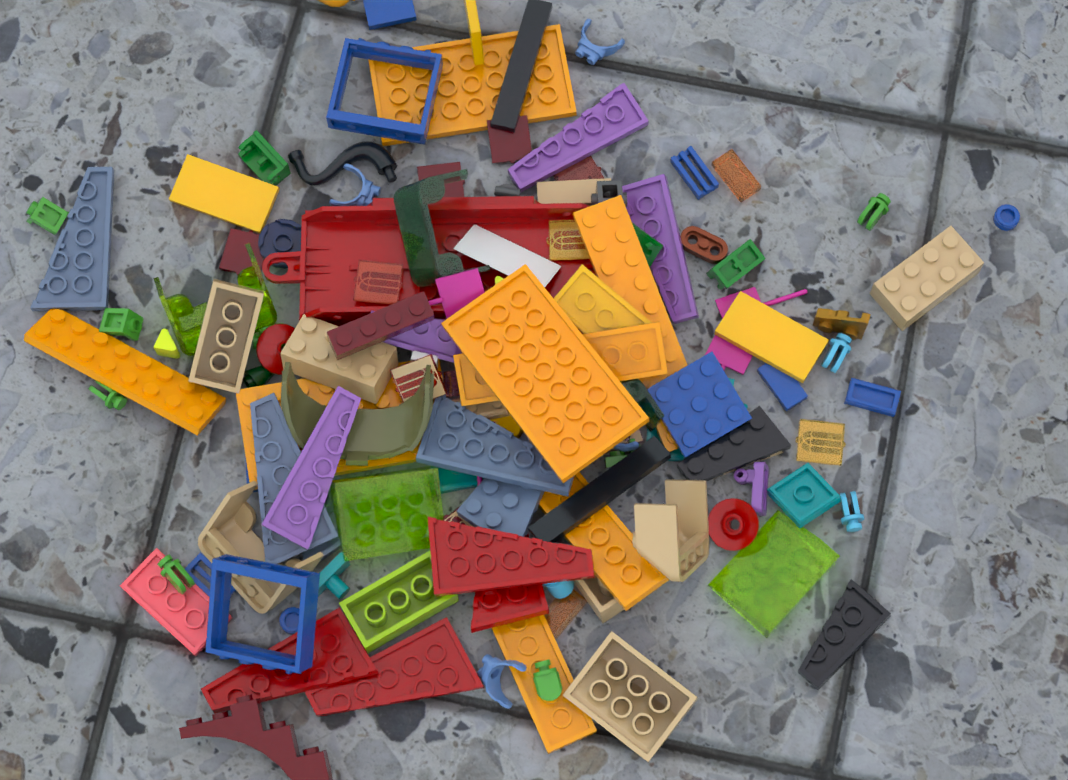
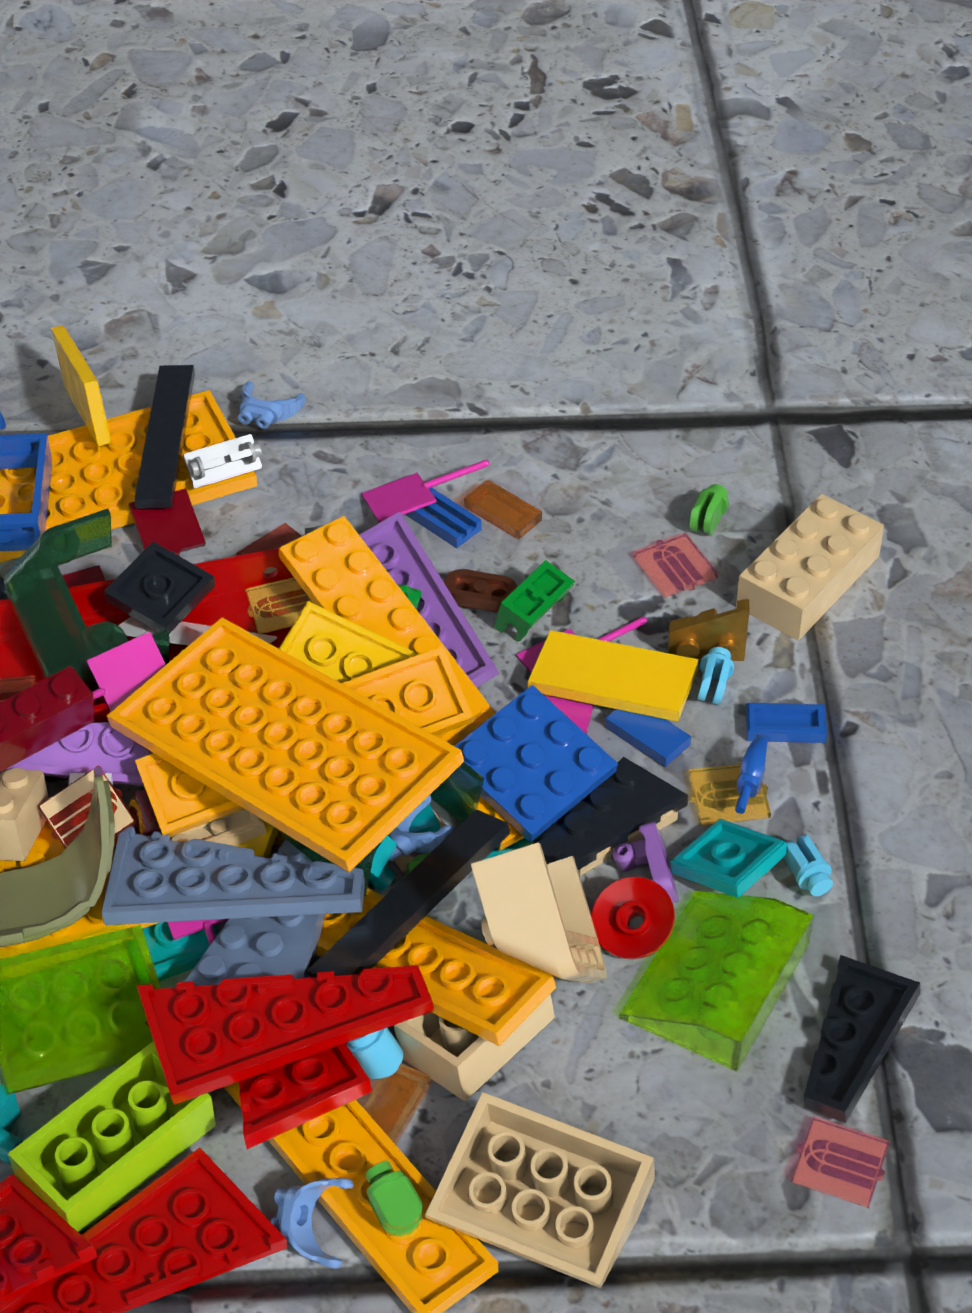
camera: 15 degrees left, 25 degrees down
(491, 224) = (159, 588): none -> black plate
(555, 98) = (223, 460): none -> hinge
(597, 128) = (306, 481): medium lavender wing -> none
(673, 149) = (409, 492): none -> dark pink piece
(808, 712) = (840, 1161): none -> clear pink piece
(836, 436) = (752, 772): none -> blue hand
(839, 249) = (675, 565): none -> clear pink piece
(1006, 217) = (892, 487): blue tile -> none

